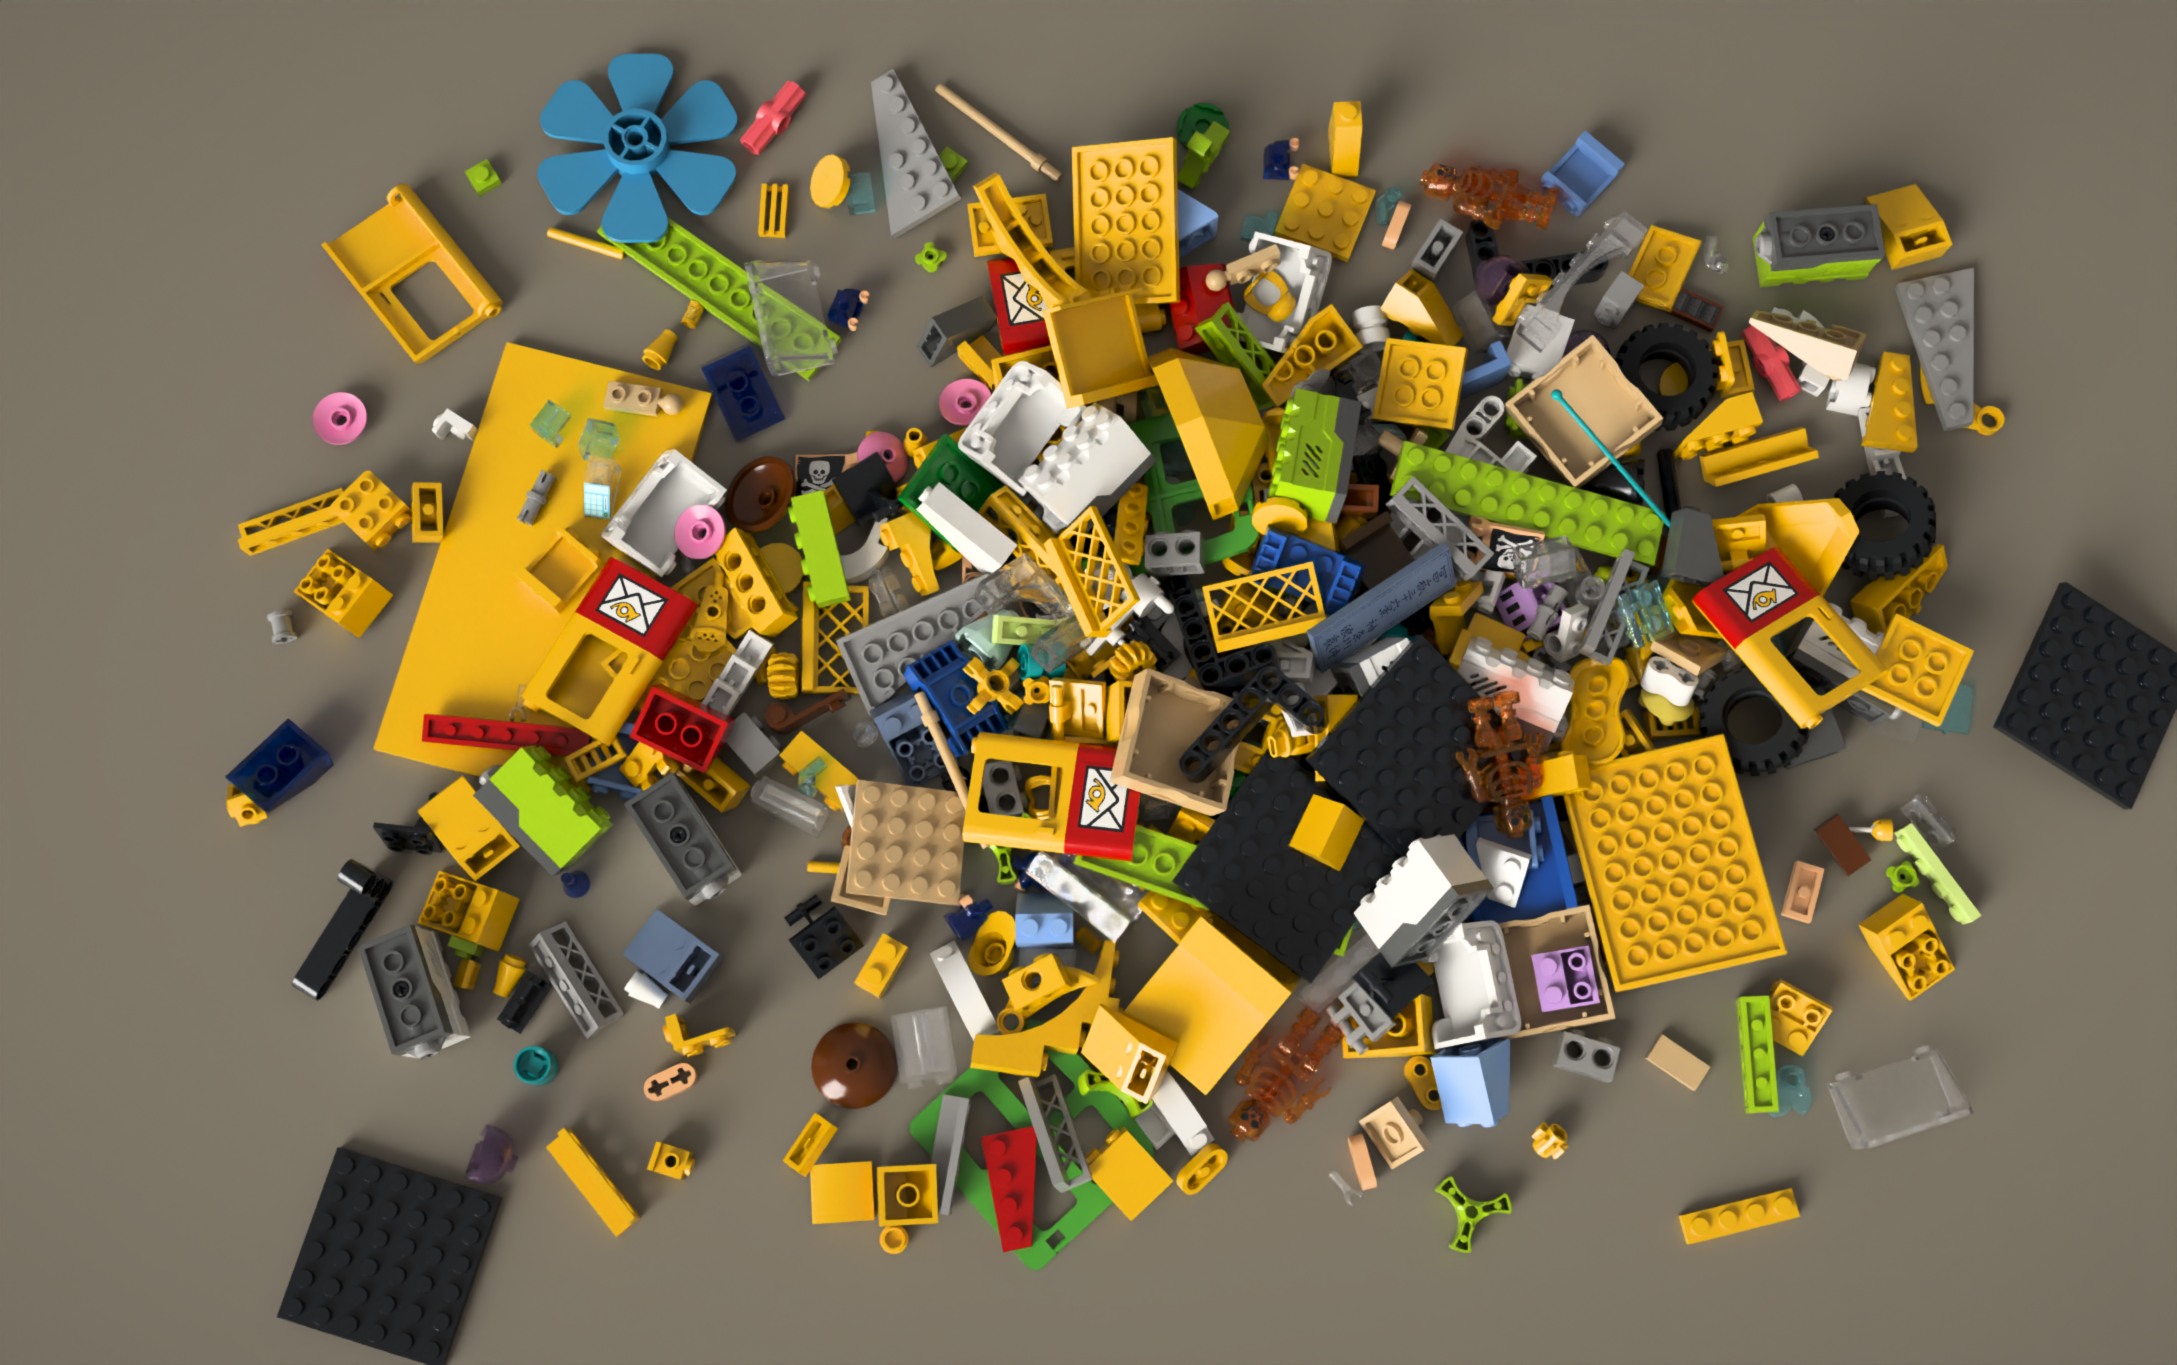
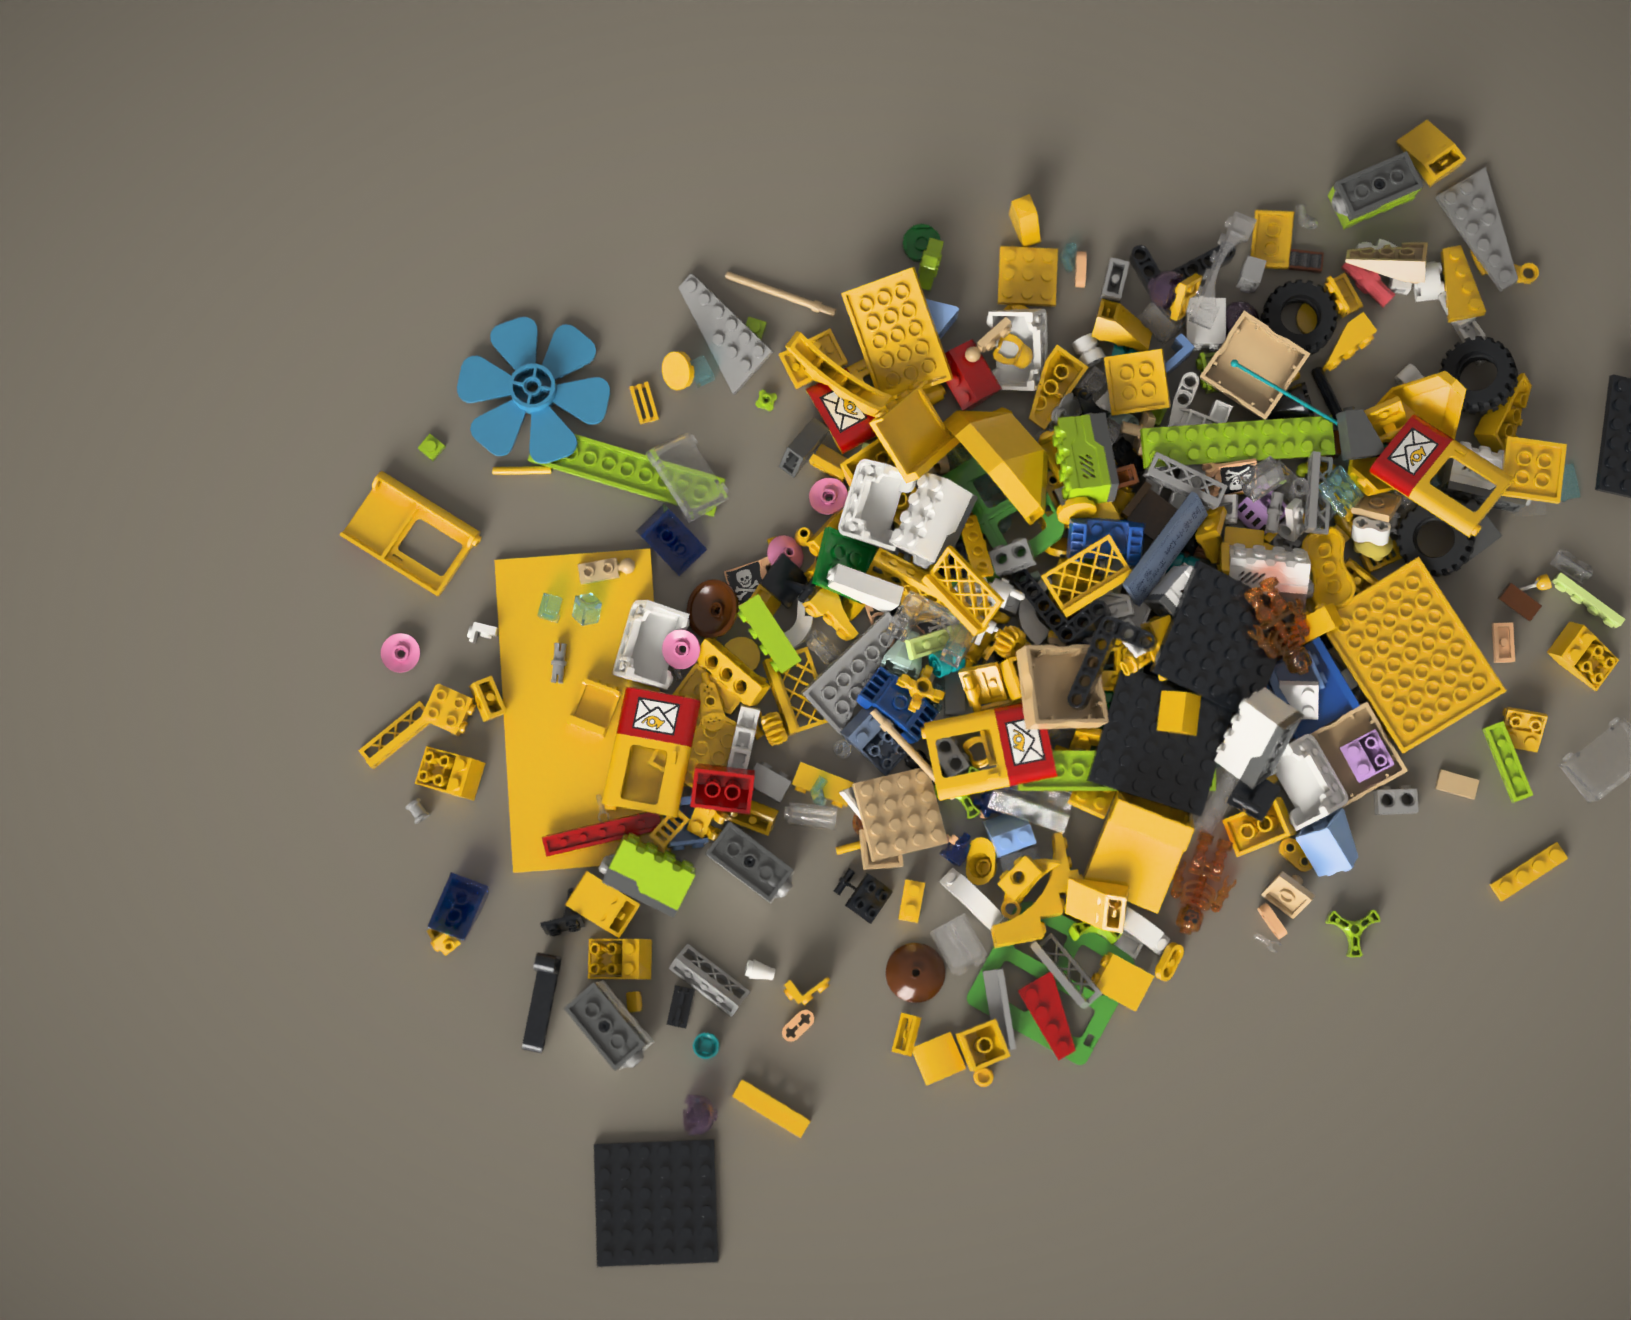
camera: 15 degrees left, 5 degrees up
(465, 948) = (628, 984): lime plate -> none
(509, 973) = (663, 991): yellow cone -> none
(575, 883) = (685, 916): clear blue cone -> none
(600, 487) = (601, 641): clear slope -> none
(659, 351) = (602, 532): yellow cone -> none
(660, 1154) = (811, 1073): yellow brick -> none
(673, 956) = (768, 941): sand blue slope -> none
(688, 322) = (614, 500): yellow piece -> none
(773, 117) = (619, 336): coral piece -> none
(783, 721) = (783, 757): reddish brown door -> none
(847, 307) = (721, 456): clear blue piece -> none
(1030, 685) = (955, 685): yellow plate -> none
(1095, 946) = (1041, 838): yellow piece -> none
(1146, 632) = (1011, 617): black hinge -> none
(1226, 347) = (998, 401): lime fence -> none
(1257, 224) = (986, 302): clear light blue panel -> none
(1277, 160) = (982, 251): clear blue piece -> none
(1367, 1014) = (1242, 822): light grey plate -> none
(1475, 190) = (1103, 227): clear orange piece -> none
(1550, 1140) = (1390, 865): yellow gear -> none
(1582, 174) = (1195, 190): medium blue panel -> none
(1757, 457) = (1380, 353): yellow fence -> none
(1792, 1095) = (1537, 780): clear light blue plate -> none
(1908, 871) = (1566, 603): lime plate -> none

